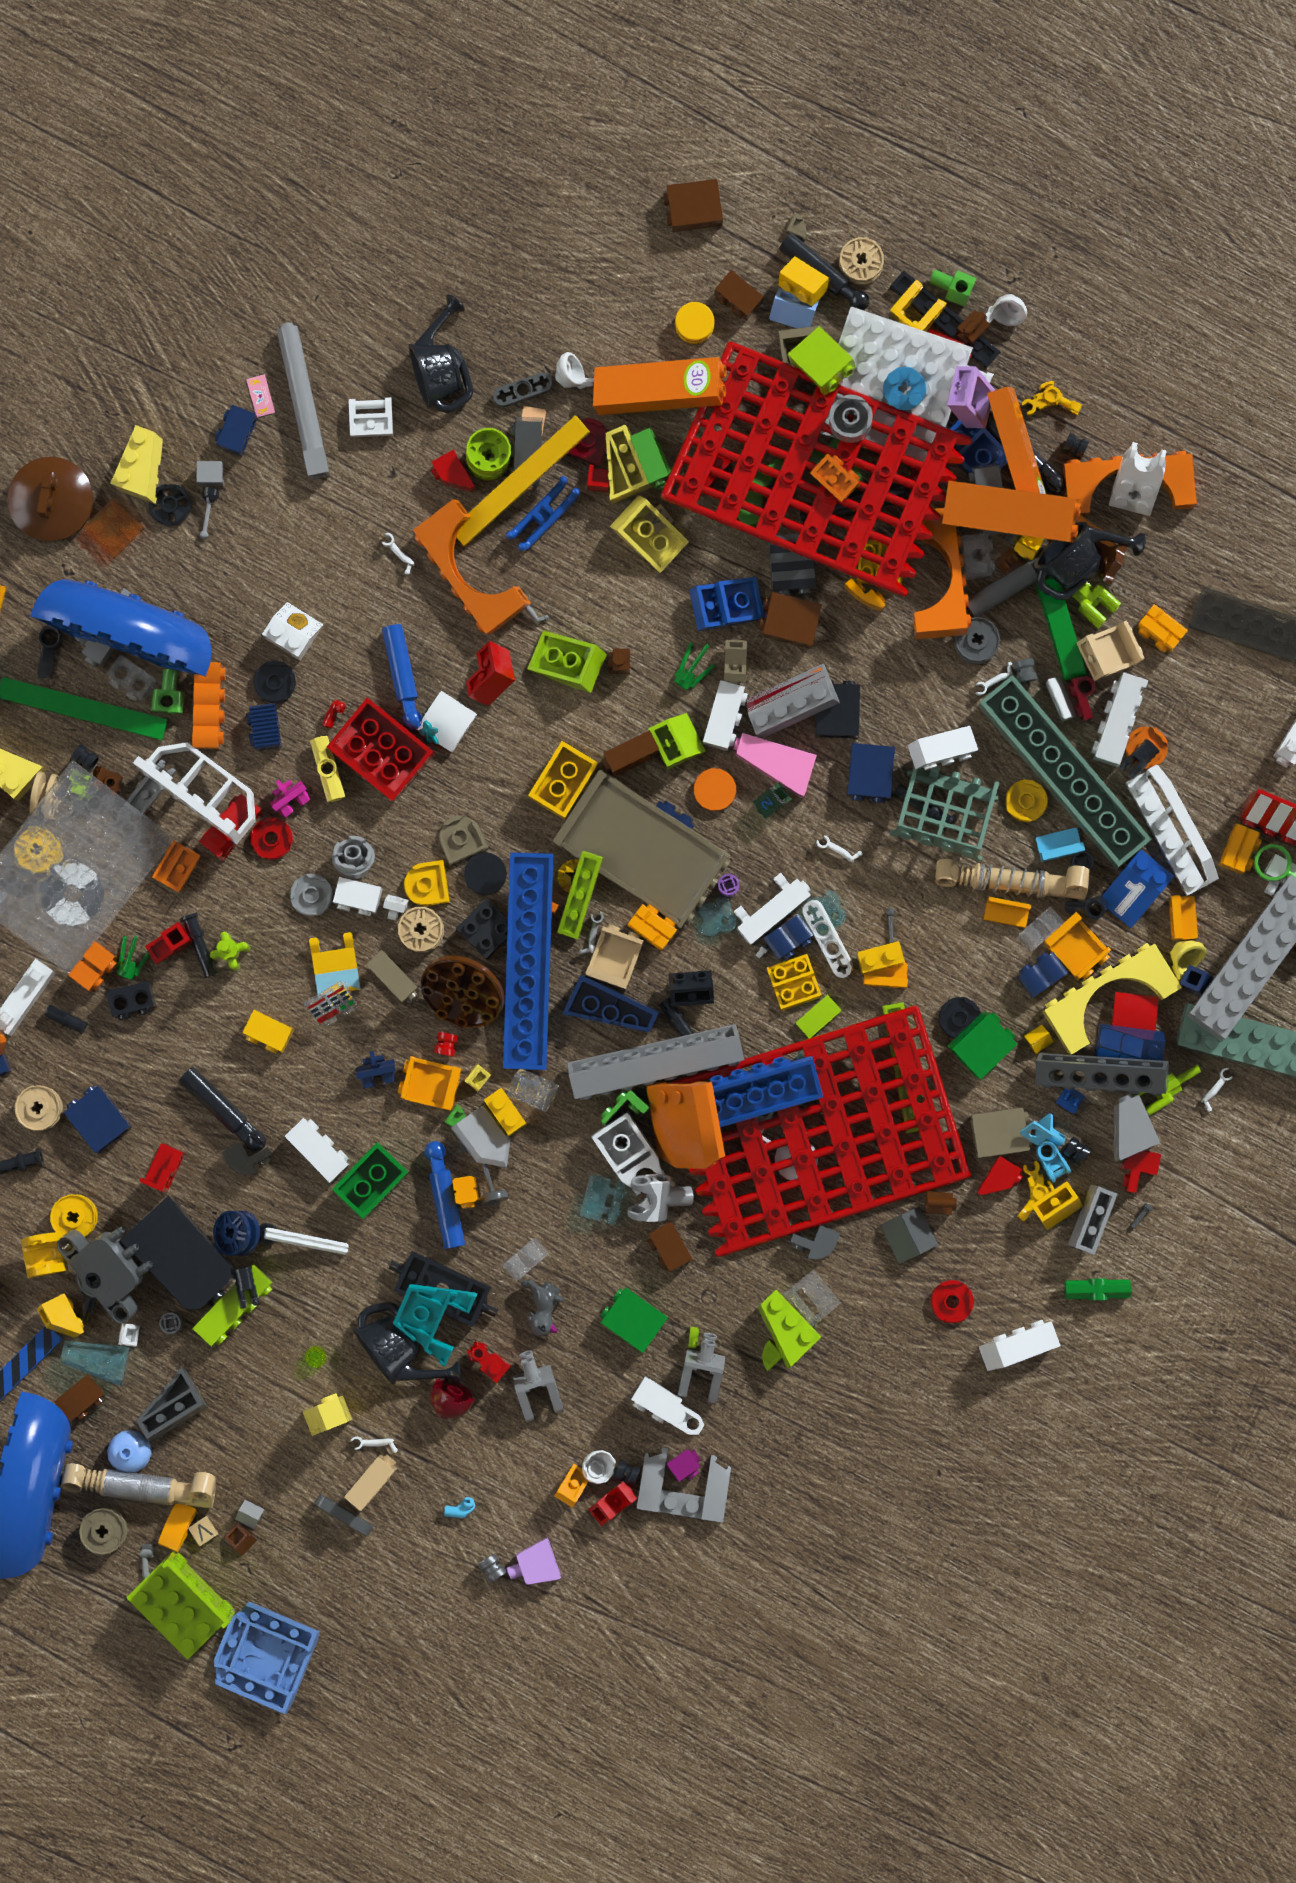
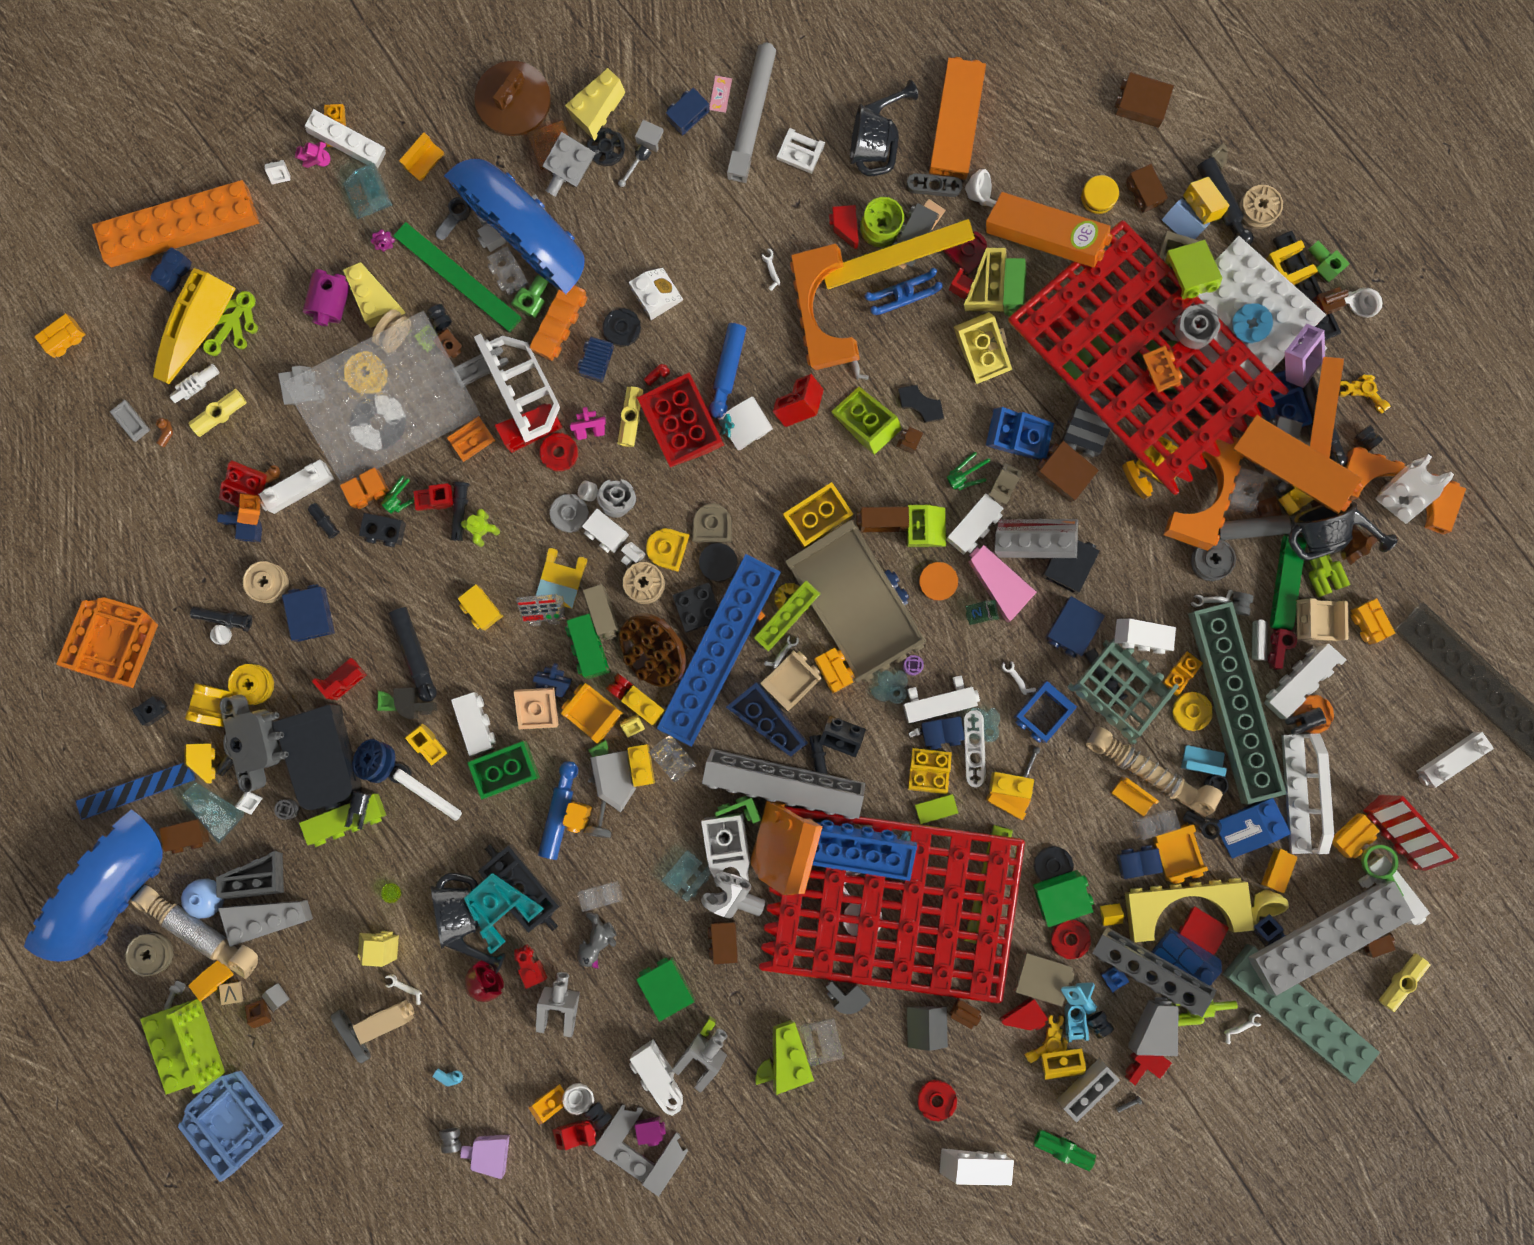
camera: 30 degrees right, 0 degrees up
(18, 1182) = (220, 634): none -> white tile
(141, 540) = (567, 162): none -> light grey brick
(195, 1446) = (256, 920): none -> light grey wedge
(218, 1171) = (385, 702): none -> bright green tile
(281, 1192) = (424, 741): none -> yellow brick
(319, 864) = (587, 491): none -> white tile
(373, 1104) = (536, 708): none -> light nougat plate
(395, 1019) = (587, 647): none -> green brick
(479, 1051) = (643, 705): none -> yellow brick
(514, 311) = (957, 118): none -> orange brick
(605, 618) = (913, 399): none -> black tile
(885, 849) = (1055, 695): none -> blue window
(998, 767) = (1182, 672): none -> light orange slope
(1005, 1094) = (1082, 942): none -> red tile

